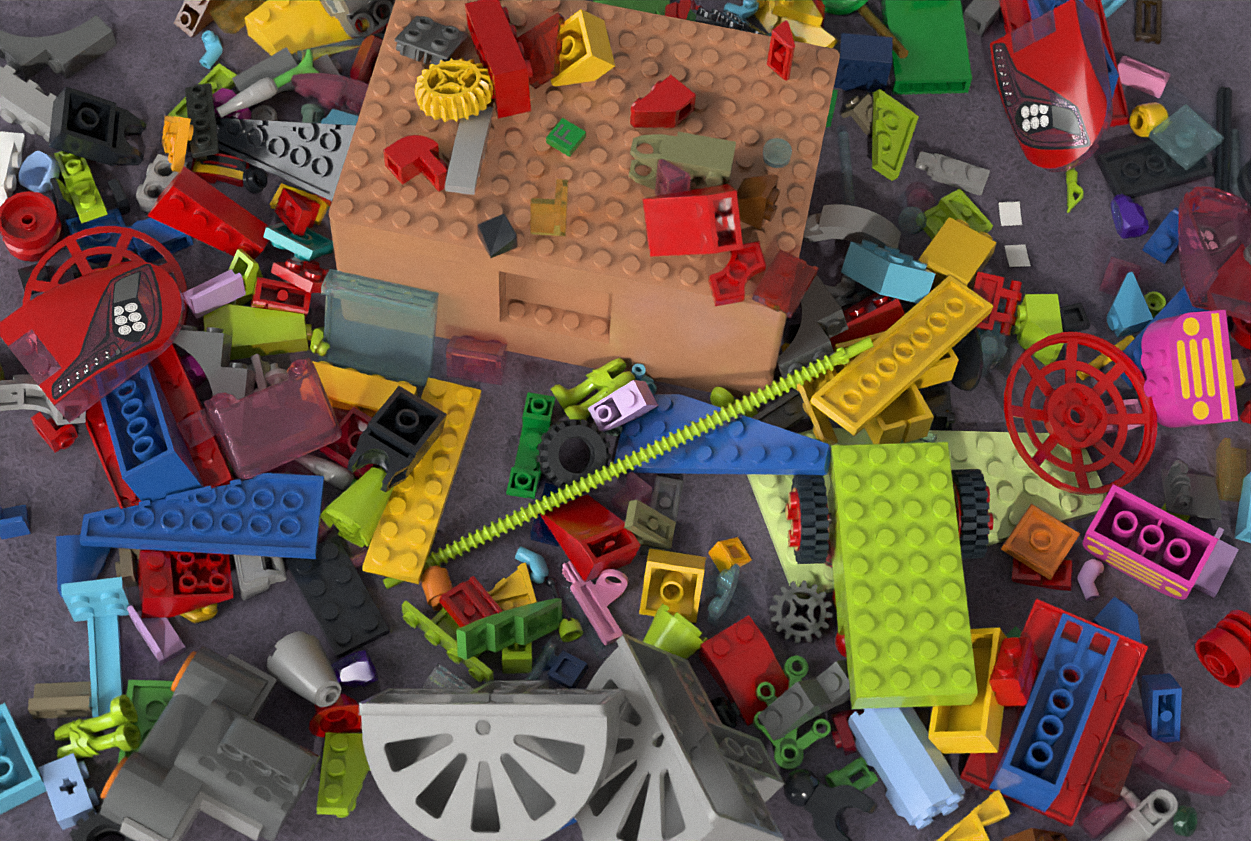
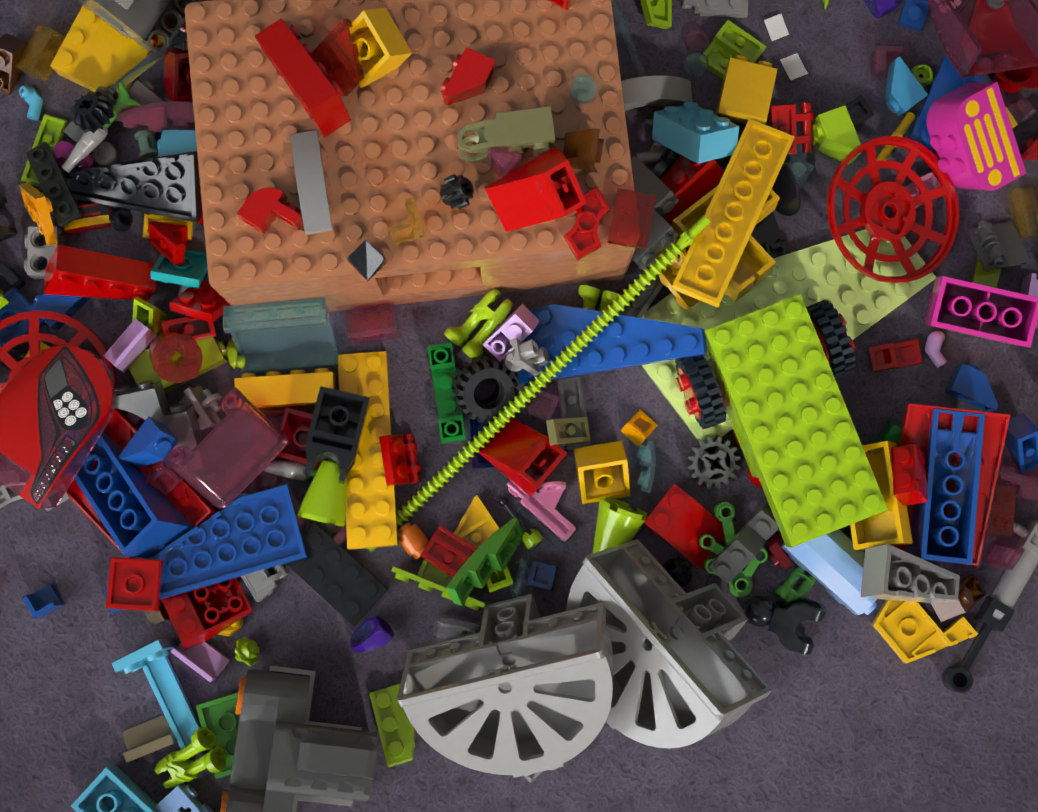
camera: 15 degrees left, 20 degrees up
(54, 436) = (50, 519): red bracket -> none
(78, 562) = (114, 628): blue slope -> none
(119, 517) = (134, 584): none -> red plate
(193, 386) = (149, 444): none -> blue slope
(209, 638) = (247, 651): none -> lime plant
(267, 325) = (184, 367): none -> clear red brick
(270, 63) = (92, 111): none -> black gear
(304, 669) = (336, 655): light grey cone -> none
(337, 718) = (373, 675): red piece -> none
(429, 37) = (236, 79): dark grey hinge -> none
(448, 498) = (395, 460): none -> red plate
(453, 89) = (274, 121): yellow gear -> none
(536, 563) = (486, 491): medium azure arm -> none
(566, 137) = (392, 138): green tile -> none
(613, 200) = (456, 191): none -> black gear
(627, 429) = (526, 356): none -> light grey hips
(639, 373) = (518, 297): medium azure arm -> none
(980, 787) = (904, 577): none -> light grey wedge
(1040, 541) = (889, 333): orange tile -> none

